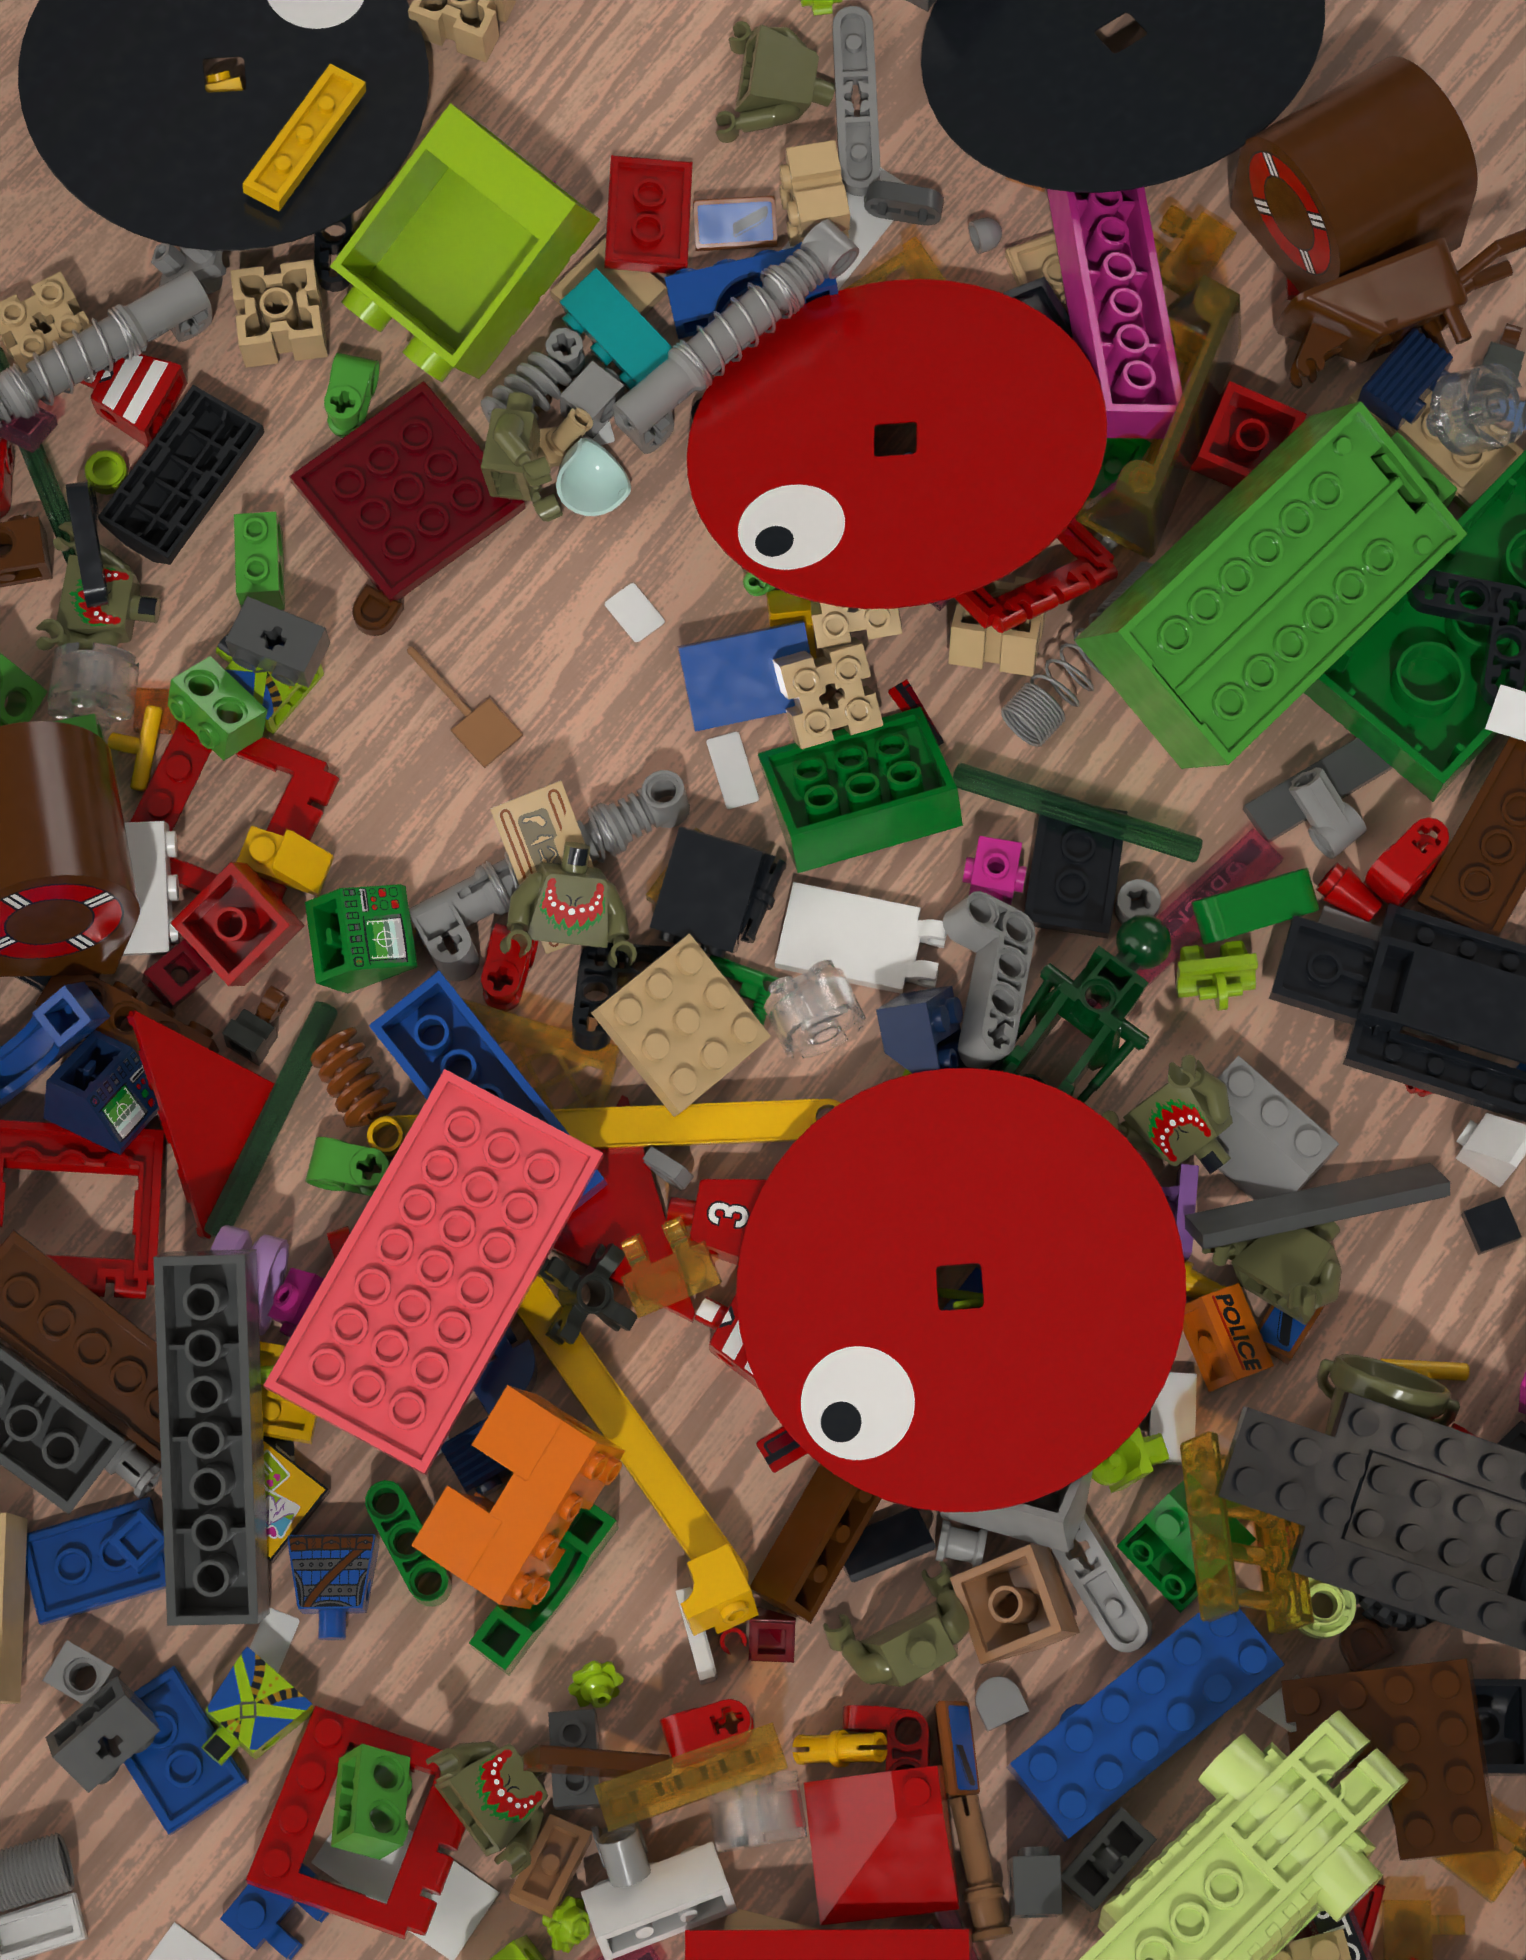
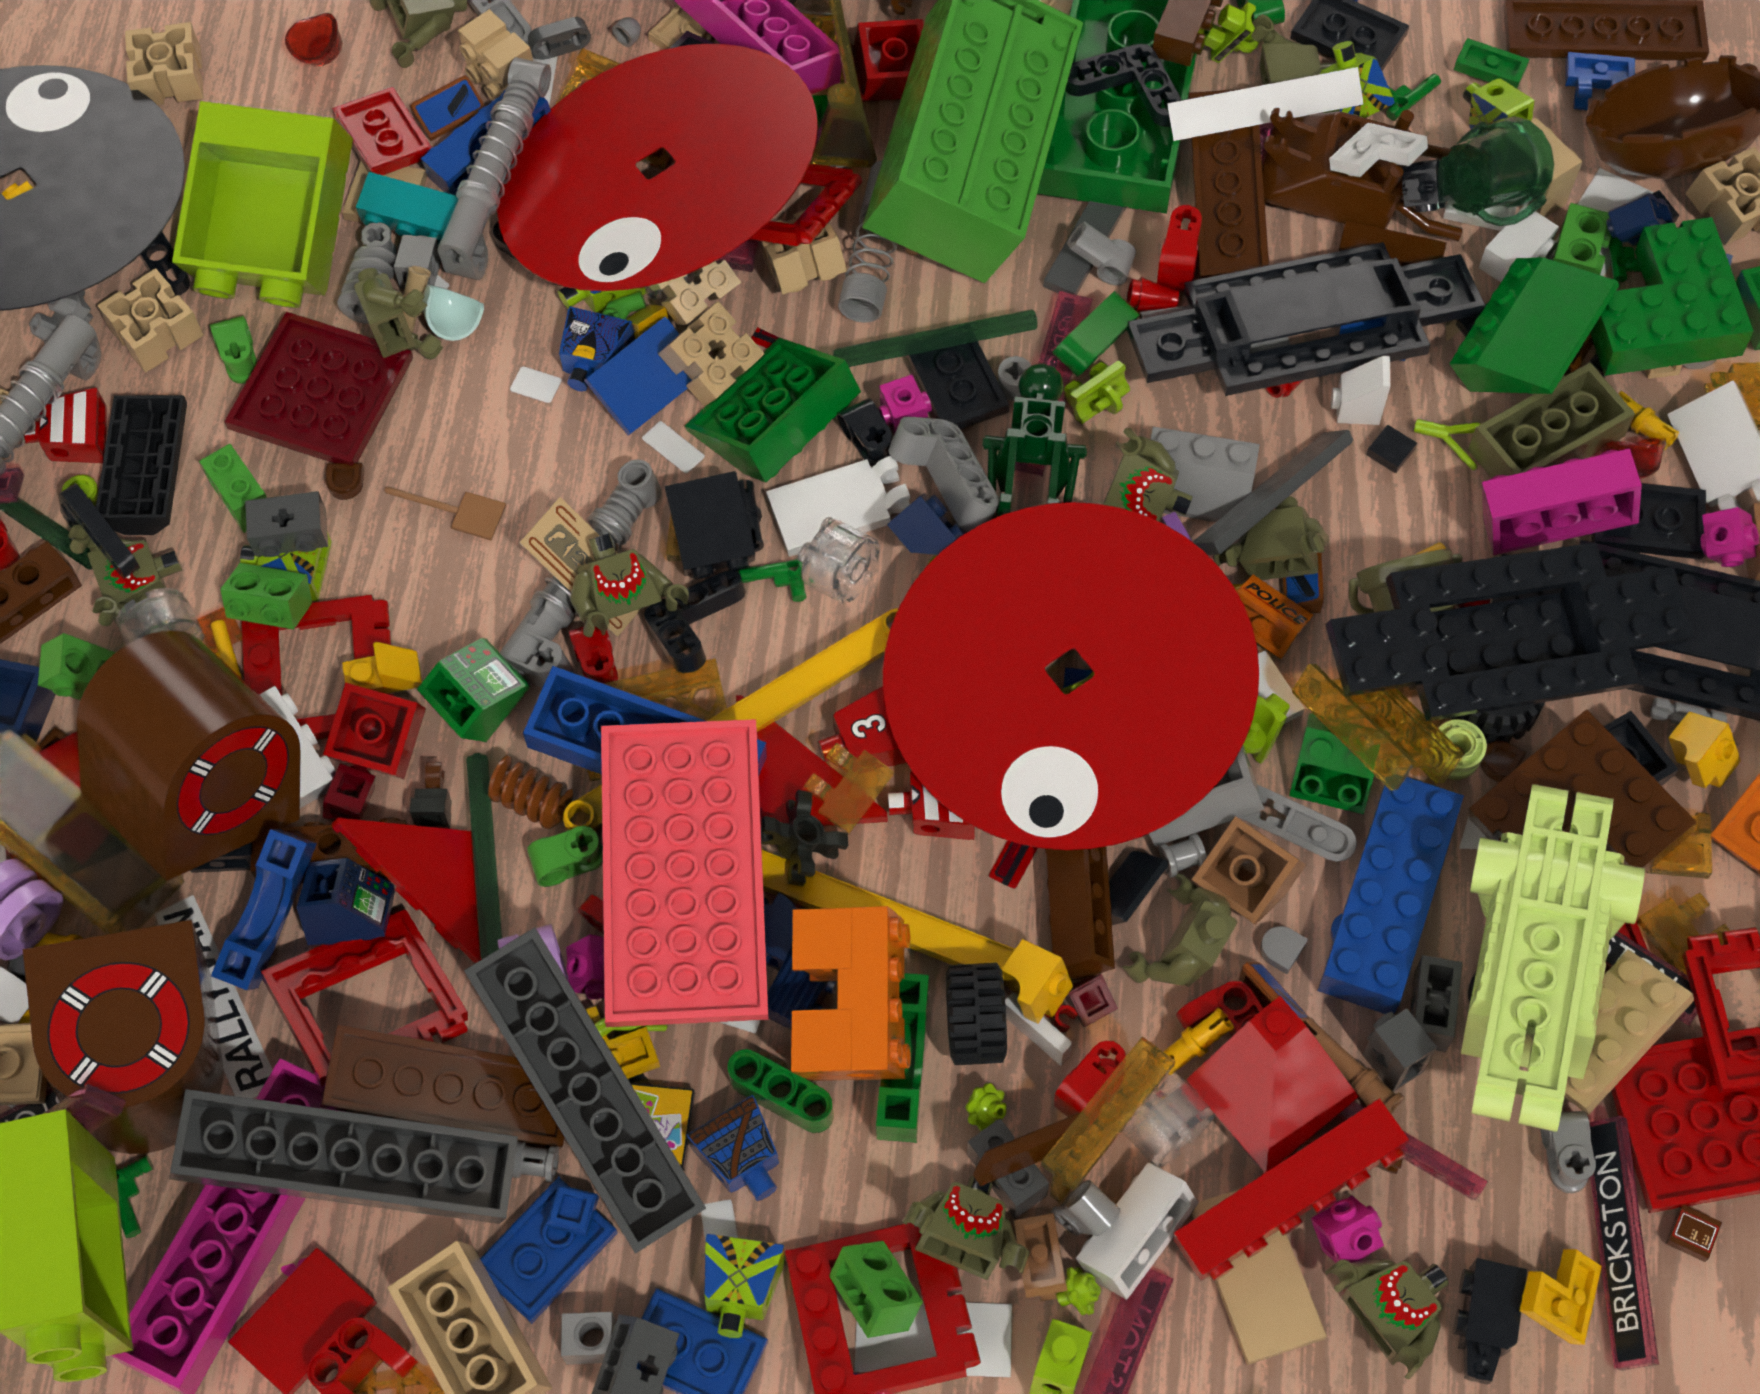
camera: 30 degrees left, 10 degrees down
(304, 137) = (101, 190): yellow plate -> none
(638, 60) = (315, 40): none -> clear red helmet
(638, 1588) = (976, 1014): none -> black tyre
(667, 1169) = (803, 724): light grey tile -> none
(681, 1025) = (750, 619): tan plate -> none
(714, 604) = (590, 342): none -> blue torso
(941, 873) = (866, 430): none -> black piece

